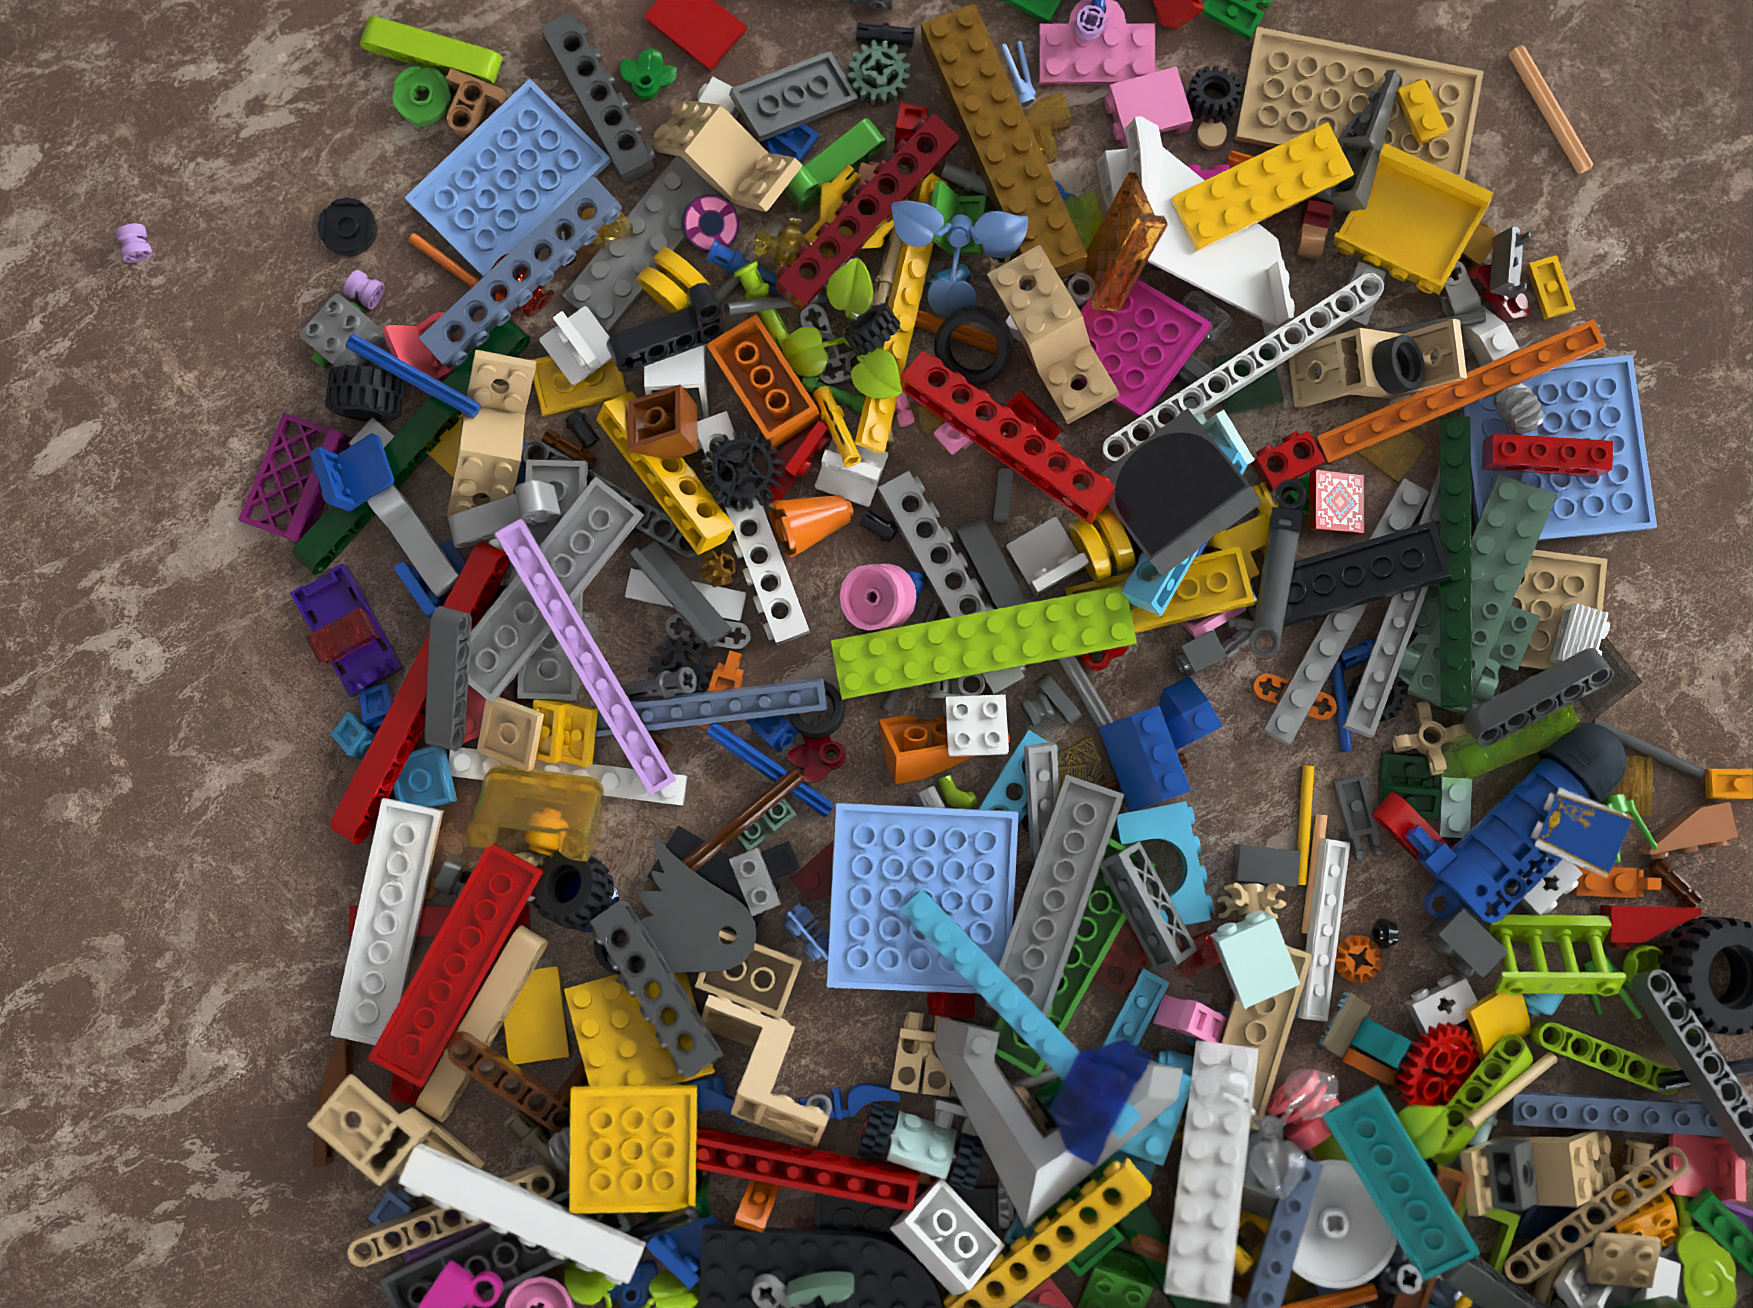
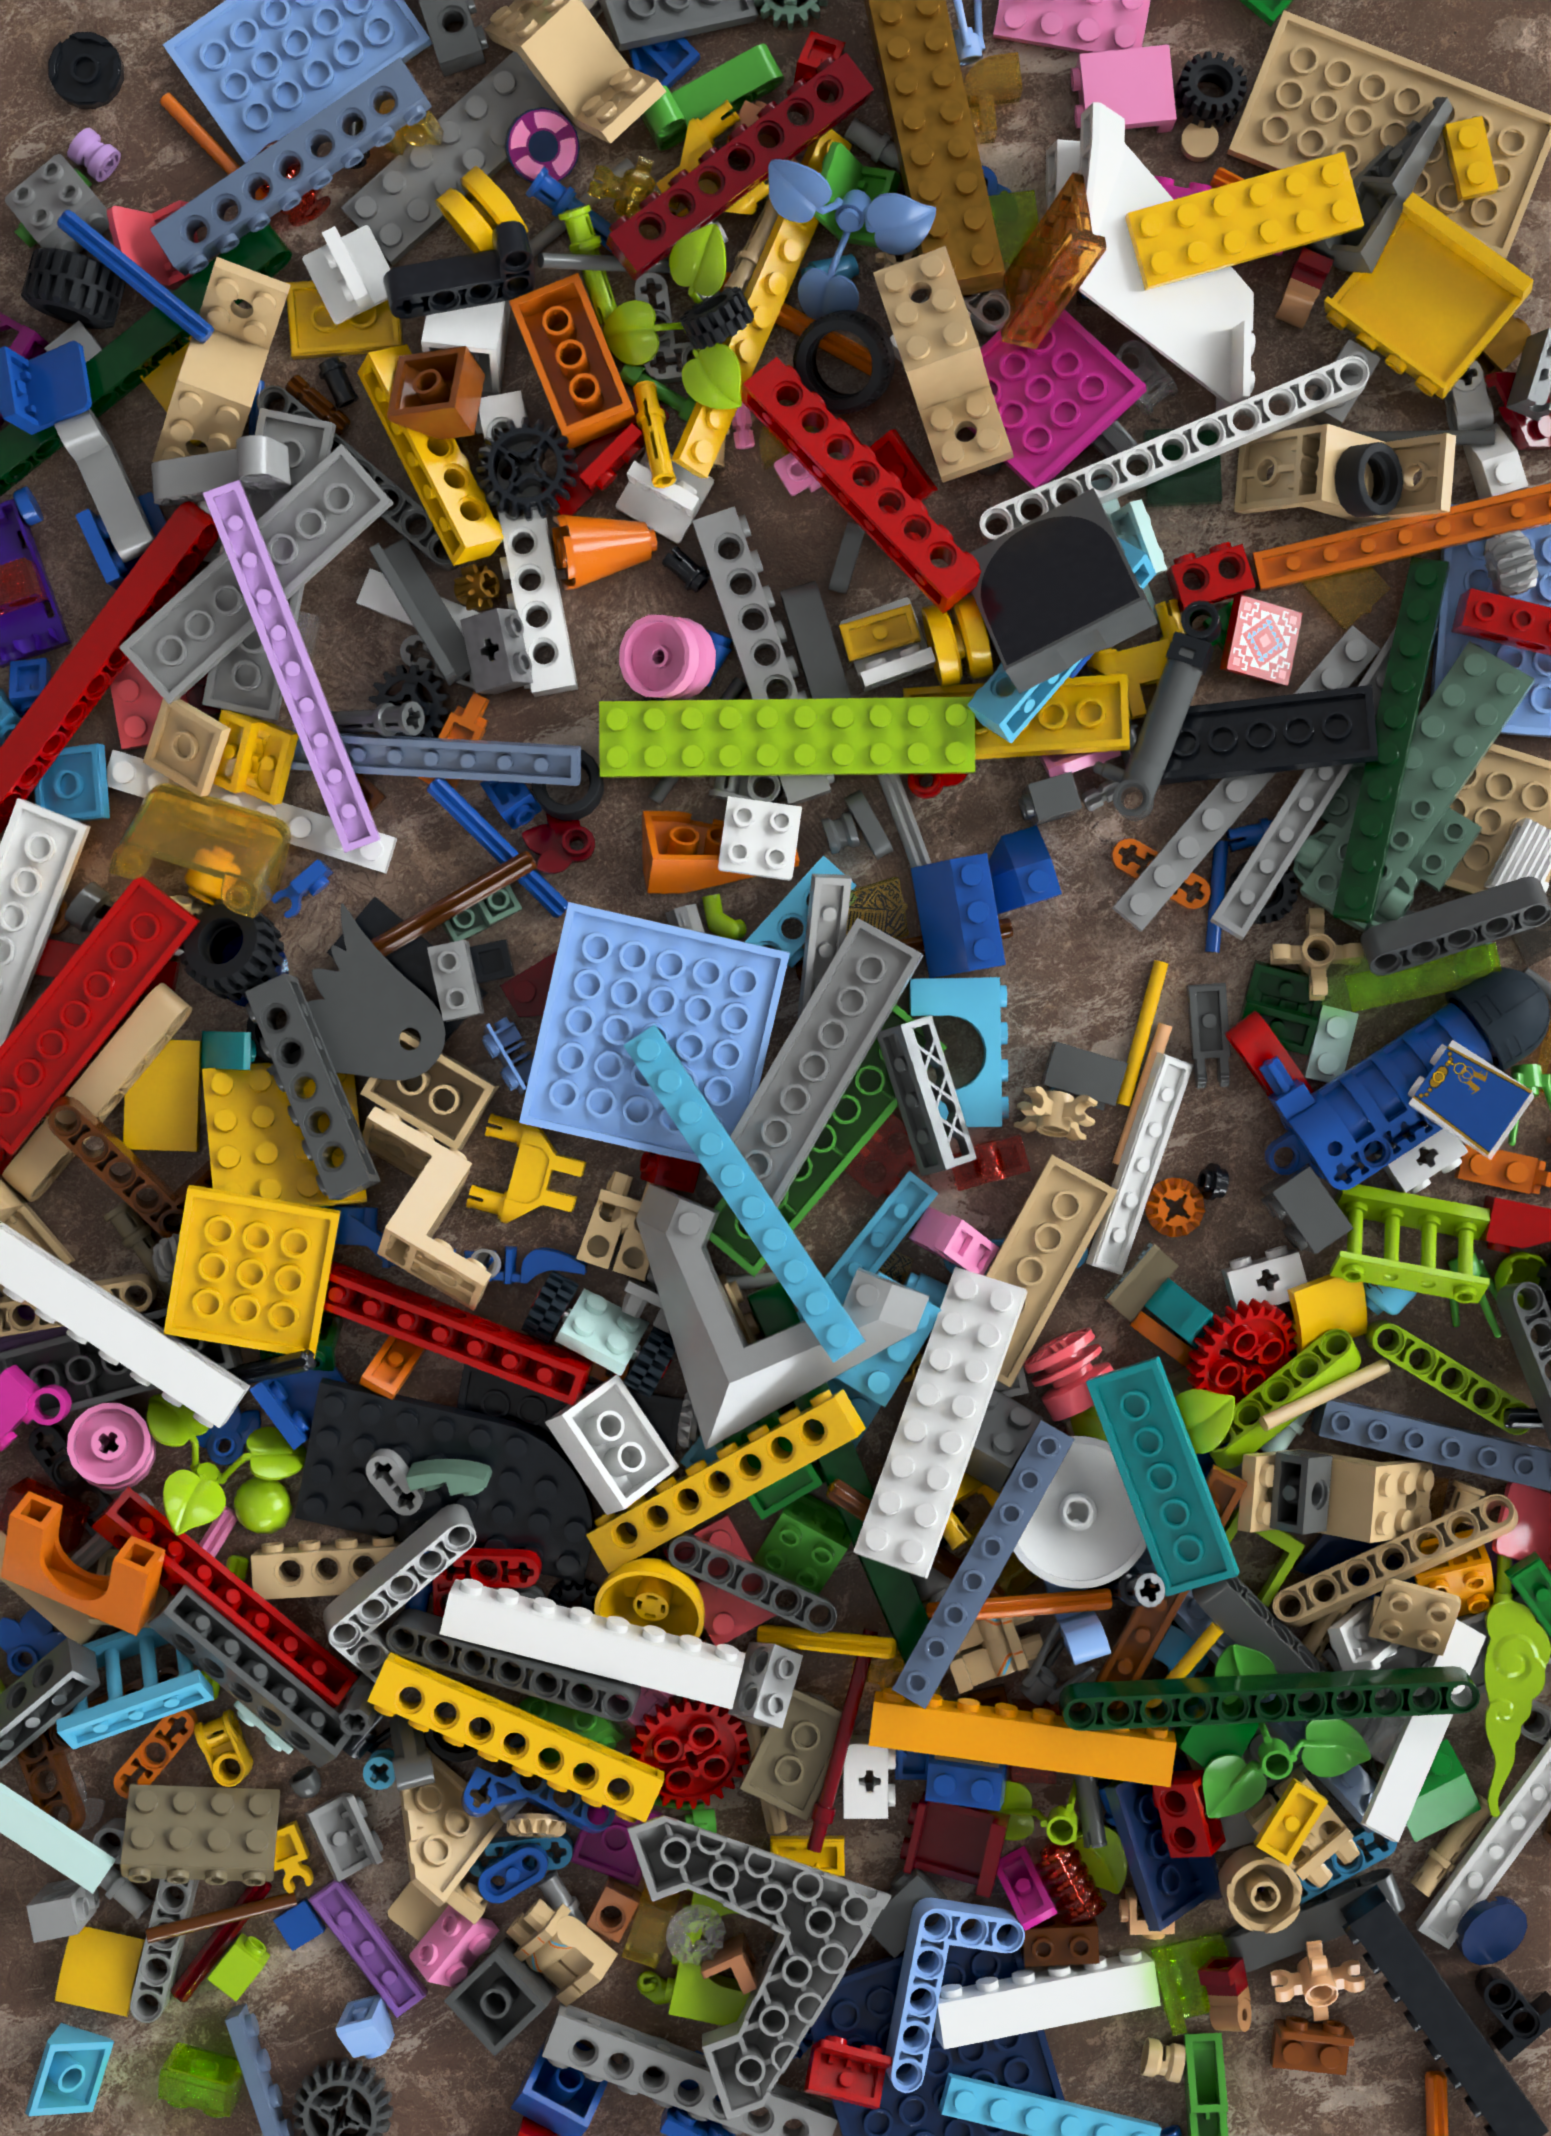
camera: 10 degrees right, 5 degrees up
(354, 567) = (28, 506): none -> blue tile
(447, 678) = (119, 663): dark grey beam -> none
(581, 970) = (227, 1050): none -> teal slope
(627, 822) = (310, 881): none -> blue plate
(741, 629) = (497, 651): none -> flat silver brick
(841, 1026) = (530, 1174): none -> yellow connector
(1040, 548) = (880, 633): none -> yellow plate
(1096, 1096) = (814, 1305): clear blue piece -> none
(1255, 958) = (1044, 1180): light aqua brick -> none
(1274, 1161) = (1018, 1422): clear plant -> none

